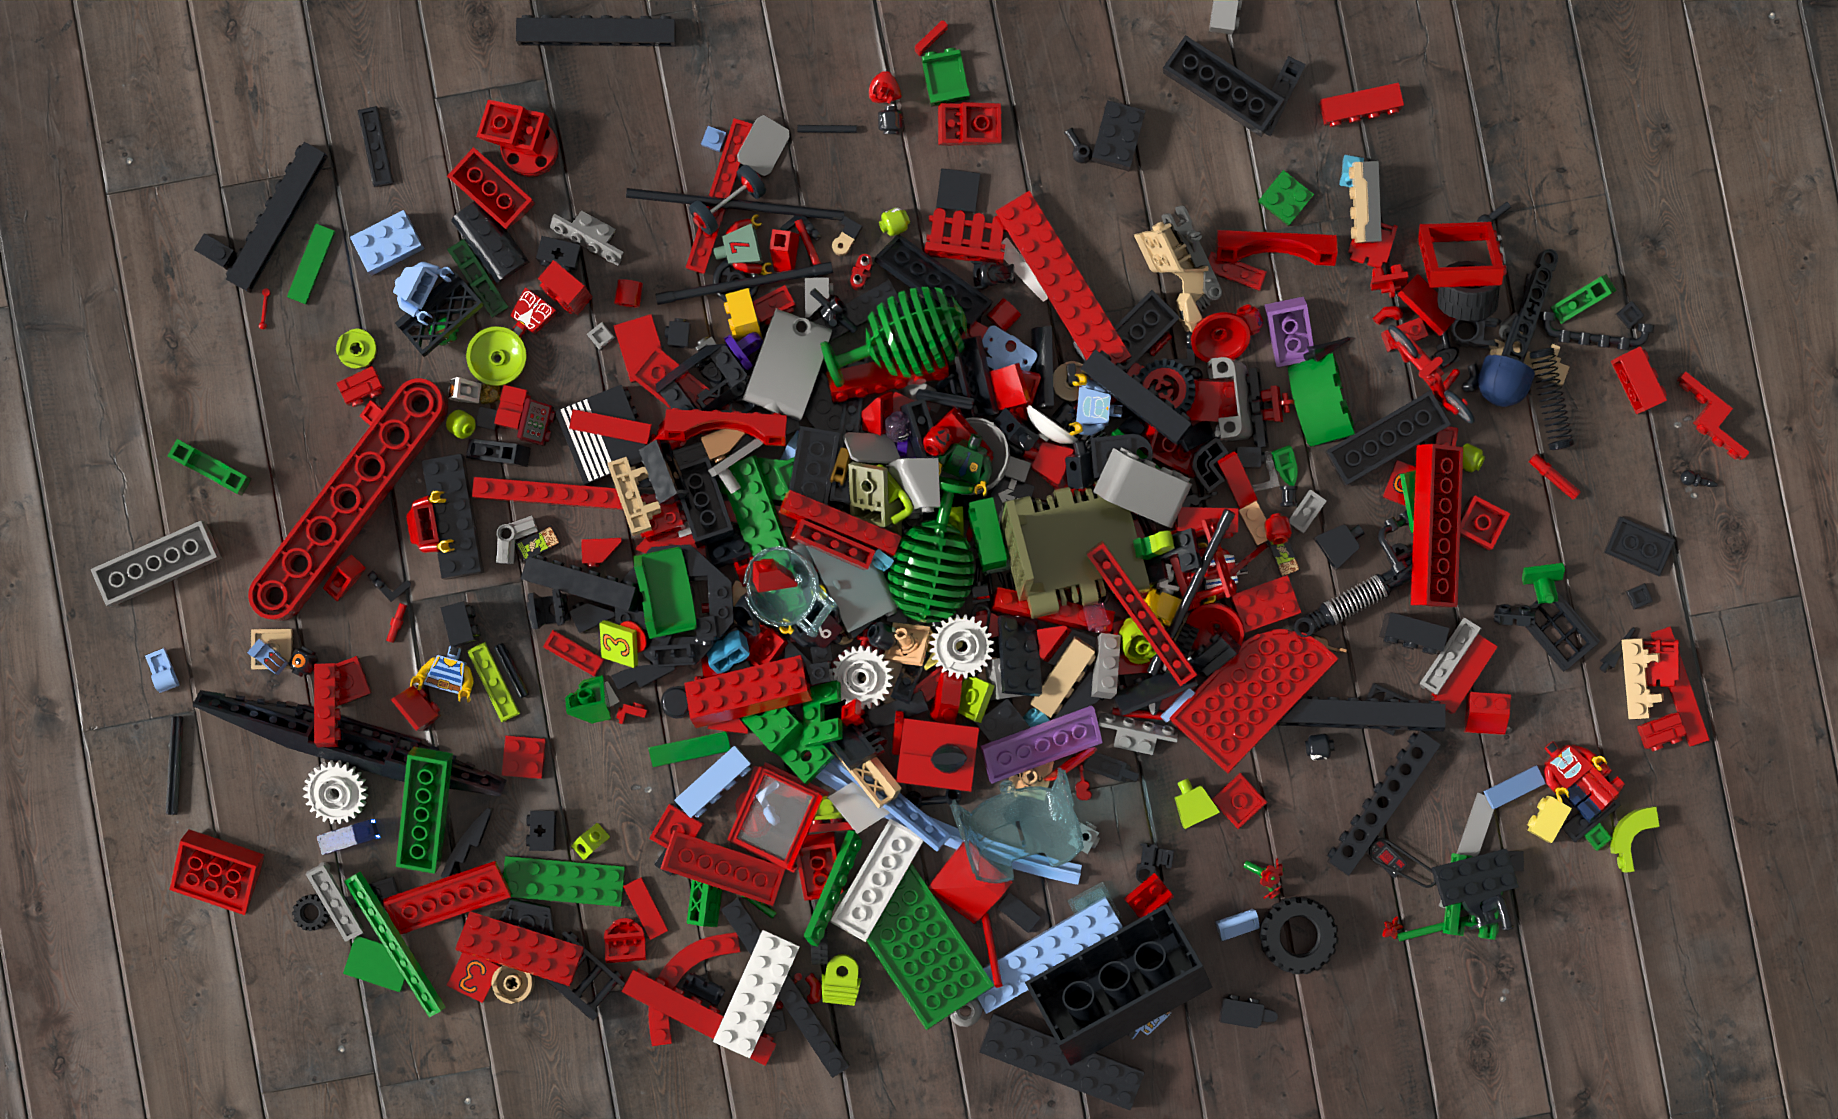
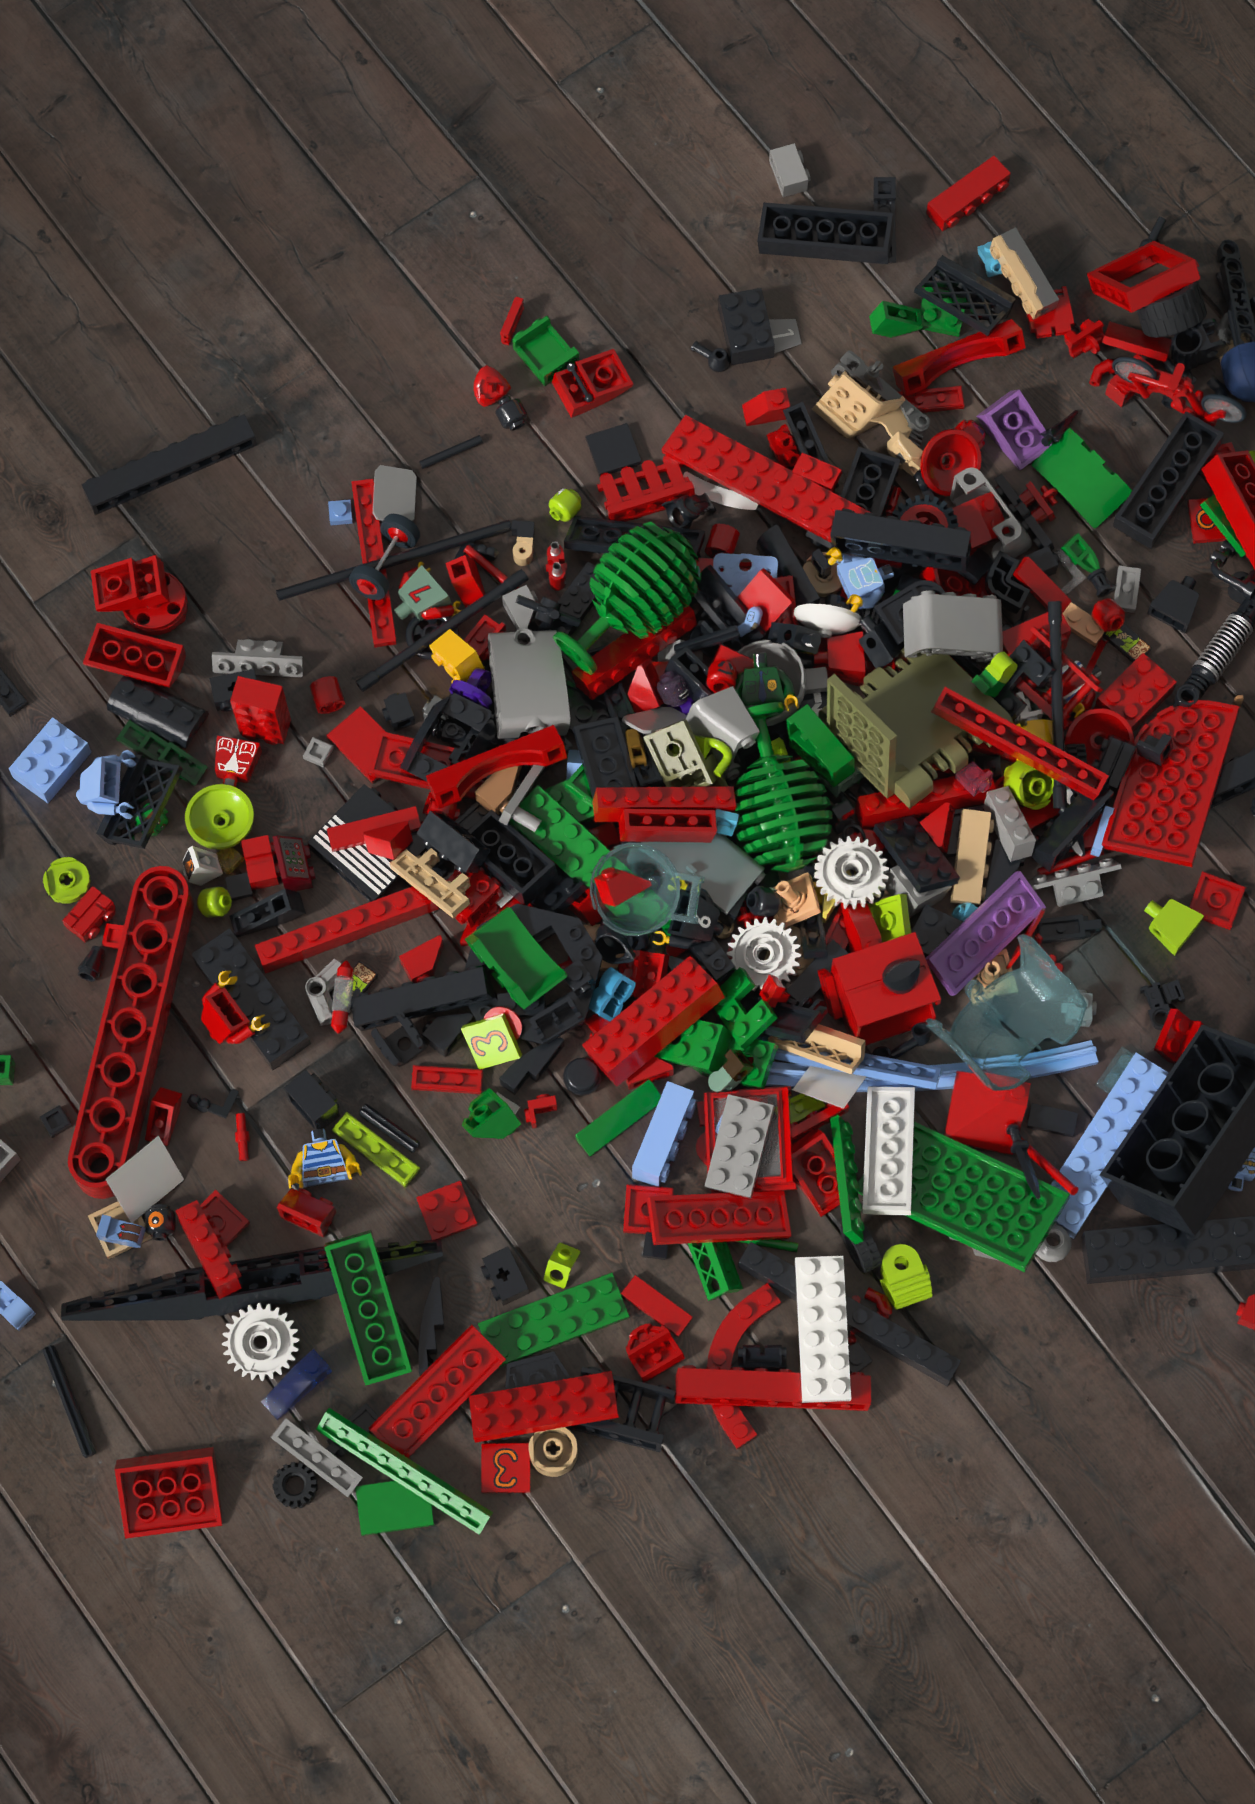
camera: 25 degrees left, 15 degrees down
(262, 540) = (55, 1121): none -> black tile
(304, 624) = (144, 1179): none -> white sticker
(345, 427) = (91, 965): none -> black cone
(521, 551) = (342, 997): none -> piece
(616, 444) = (388, 840): none -> red slope
(764, 822) = (739, 1146): none -> light grey plate
(788, 762) = (731, 1072): none -> leg
(957, 105) = (572, 368): none -> black hinge
(978, 927) = (1020, 1148): none -> black sword
(989, 399) = (751, 622): none -> light blue arm
(1094, 259) = (783, 446): none -> red hips
(1098, 215) = (766, 407): none -> red slope
(1106, 296) = (817, 471): none -> red plate
(1115, 269) = (805, 432): none -> black brick
(1147, 154) = (784, 333): none -> light grey sticker
(1242, 189) = (894, 319): none -> green slope
(1253, 660) = (1155, 749): none -> black panel
(1319, 191) = (970, 287): none -> black fence

